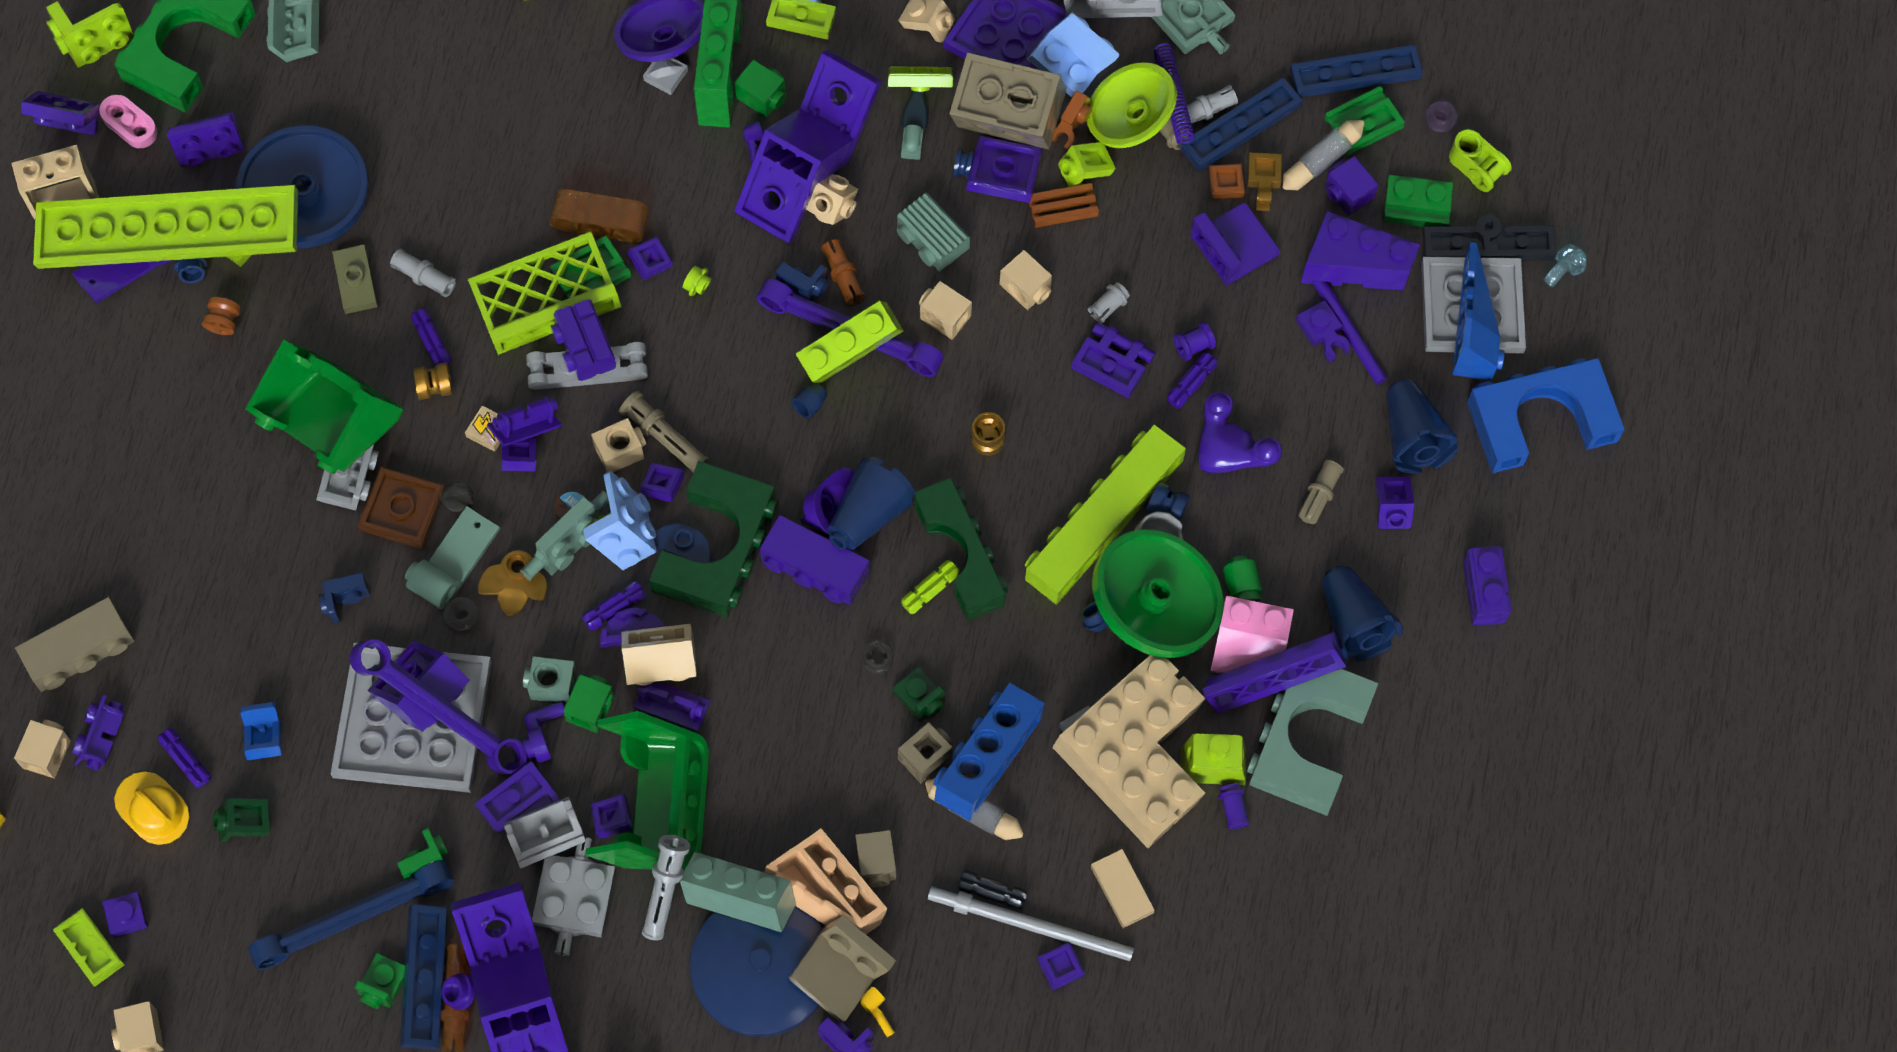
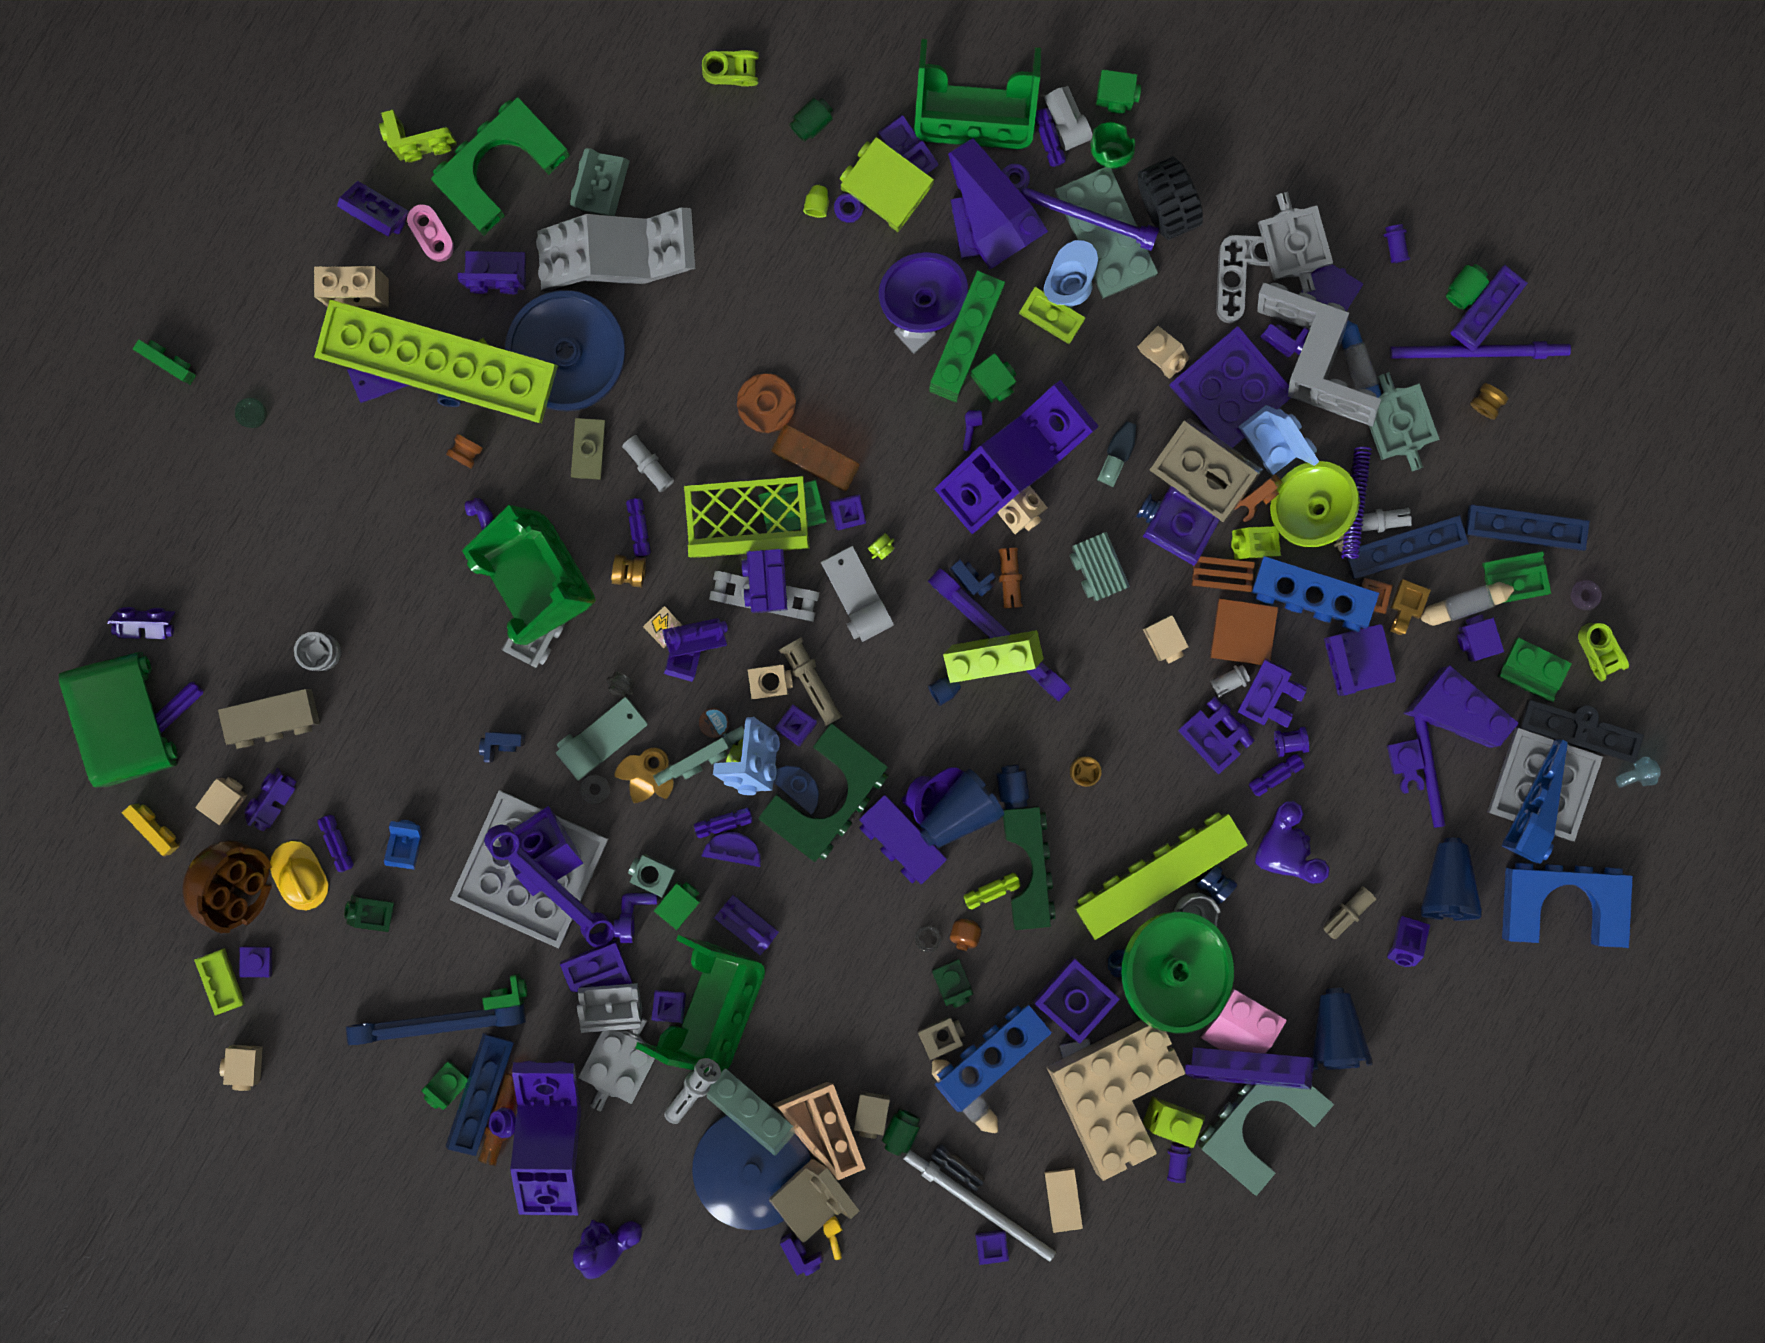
camera: 15 degrees right, 20 degrees up
(58, 821) = (214, 877): none -> reddish brown cylinder
(112, 558) = (317, 651): none -> light grey wheel
(251, 368) = (478, 507): none -> dark purple arm
(328, 71) = (616, 249): none -> light grey bracket
(401, 507) = (571, 678): reddish brown plate -> none
(530, 182) = (766, 403): none -> dark orange tile
(659, 654) = (746, 890): tan slope -> none
(686, 335) = (857, 595): none -> light grey door
(916, 468) = (1013, 787): none -> dark blue brick
(916, 868) = (901, 1132): none -> dark green brick
(917, 642) = (965, 934): none -> dark orange piece
(920, 78) = (1138, 411): plate -> none
(945, 309) = (1086, 643): tan brick -> none
(1059, 663) = (1076, 999): none -> dark purple brick
(1105, 254) = (1243, 632): none -> dark orange tile
(1148, 300) = (1265, 692): none -> dark purple plate
(1176, 178) = (1361, 599): none -> blue brick
(1243, 579) = (1254, 973): green brick -> none
(1487, 585) = (1457, 1044): dark purple brick -> none

